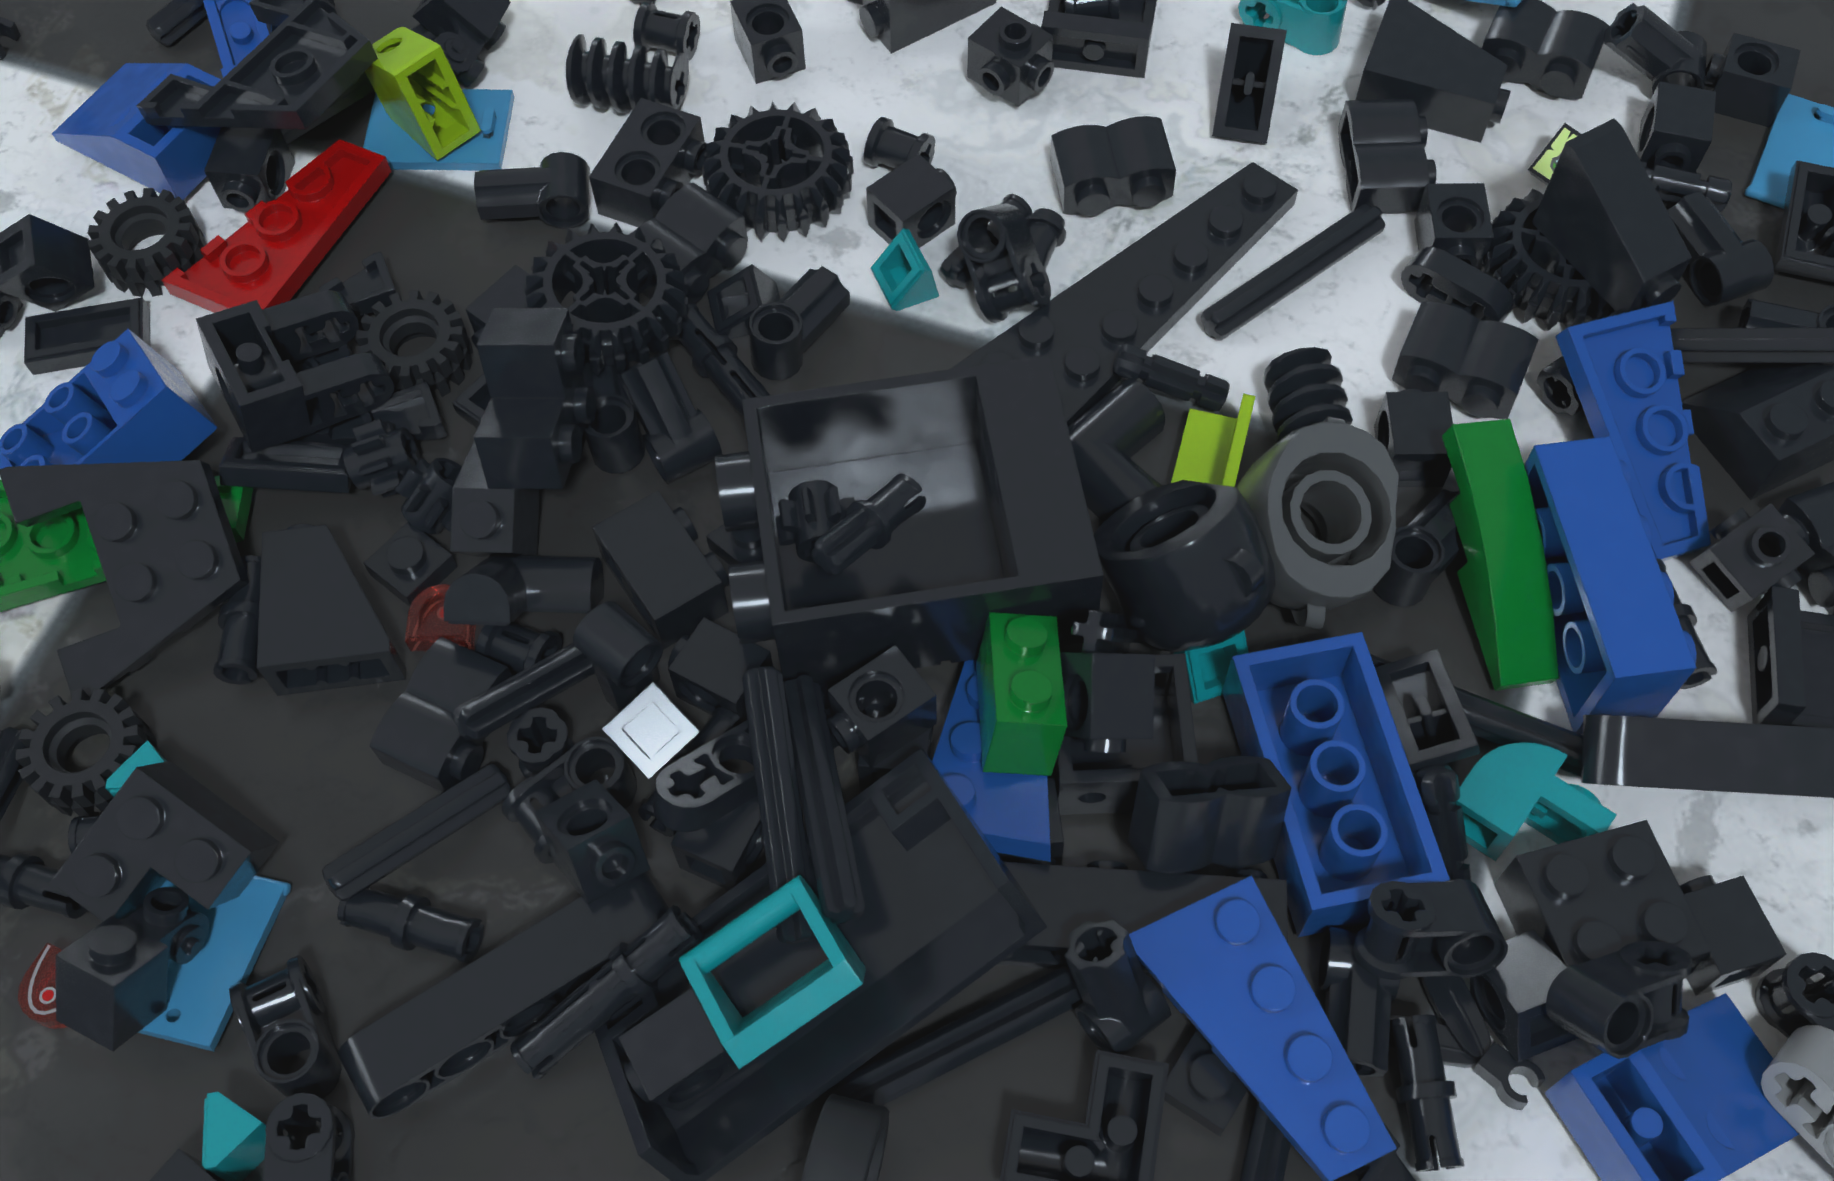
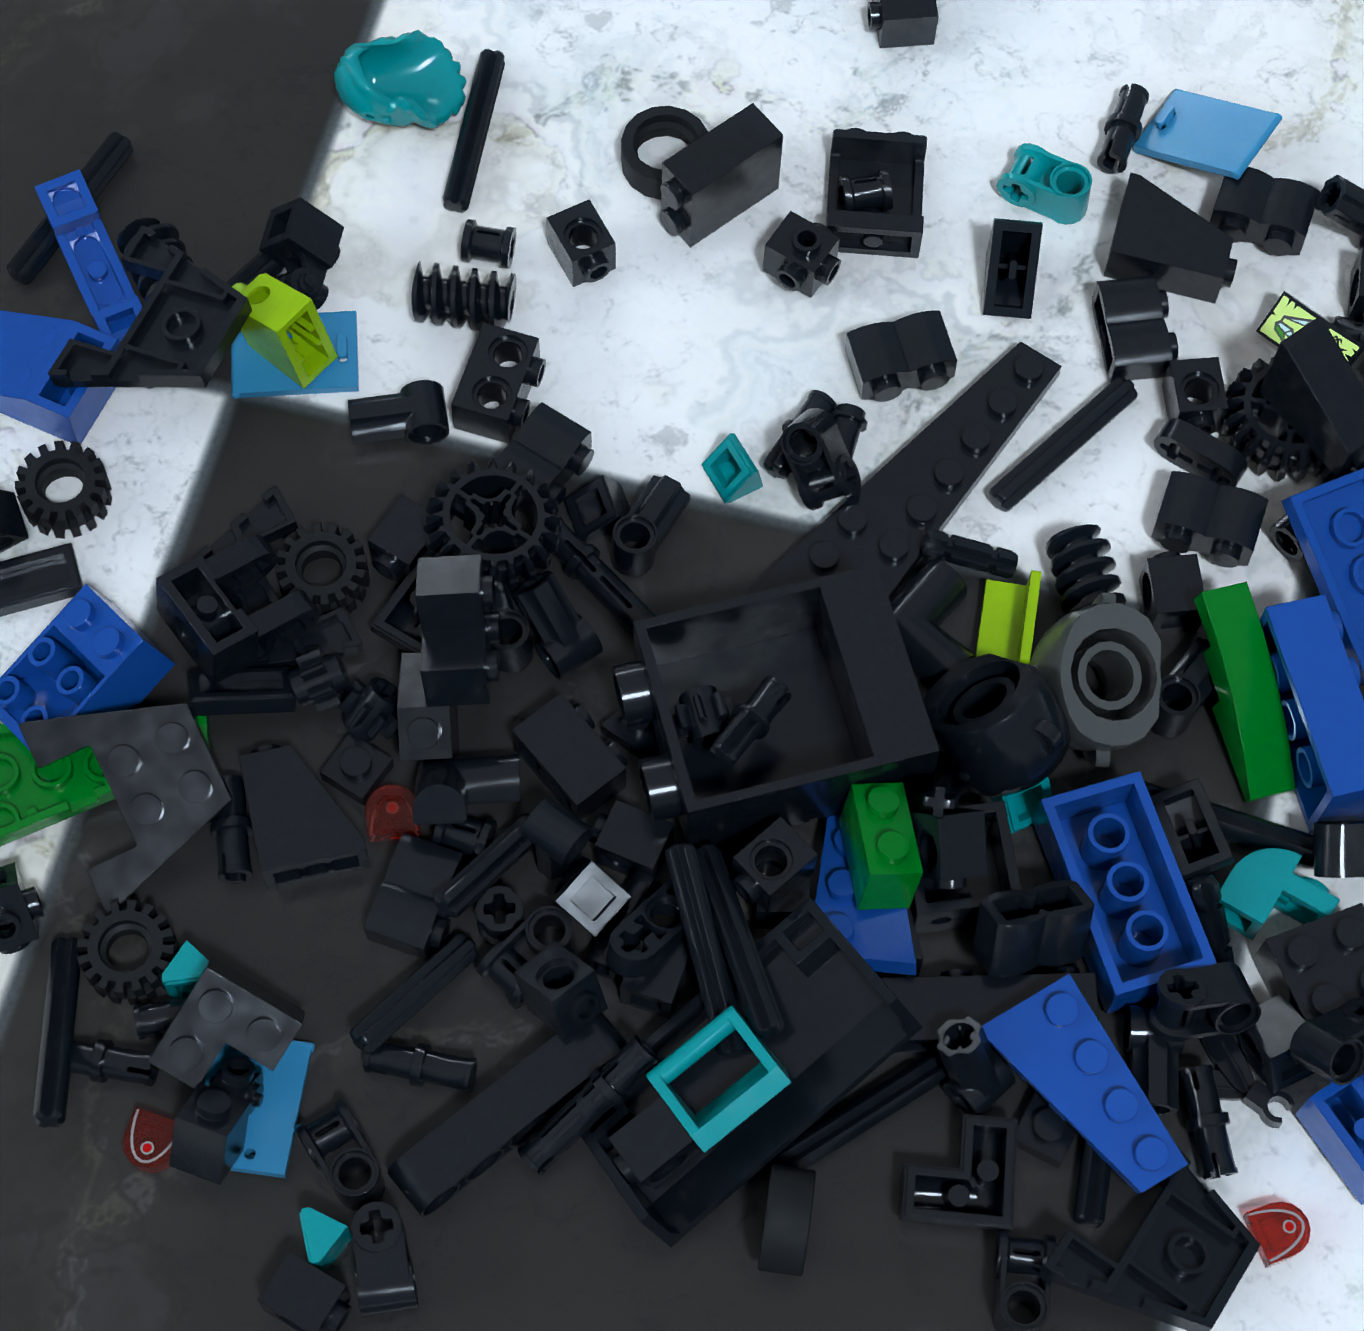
camera: 10 degrees left, 5 degrees up
(249, 166) = (139, 416): black brick -> none
(284, 236) = (180, 484): red wing -> none
(780, 169) = (586, 364): black gear -> none
(894, 146) = (713, 351): black bush -> none
(913, 199) = (732, 404): black brick -> none

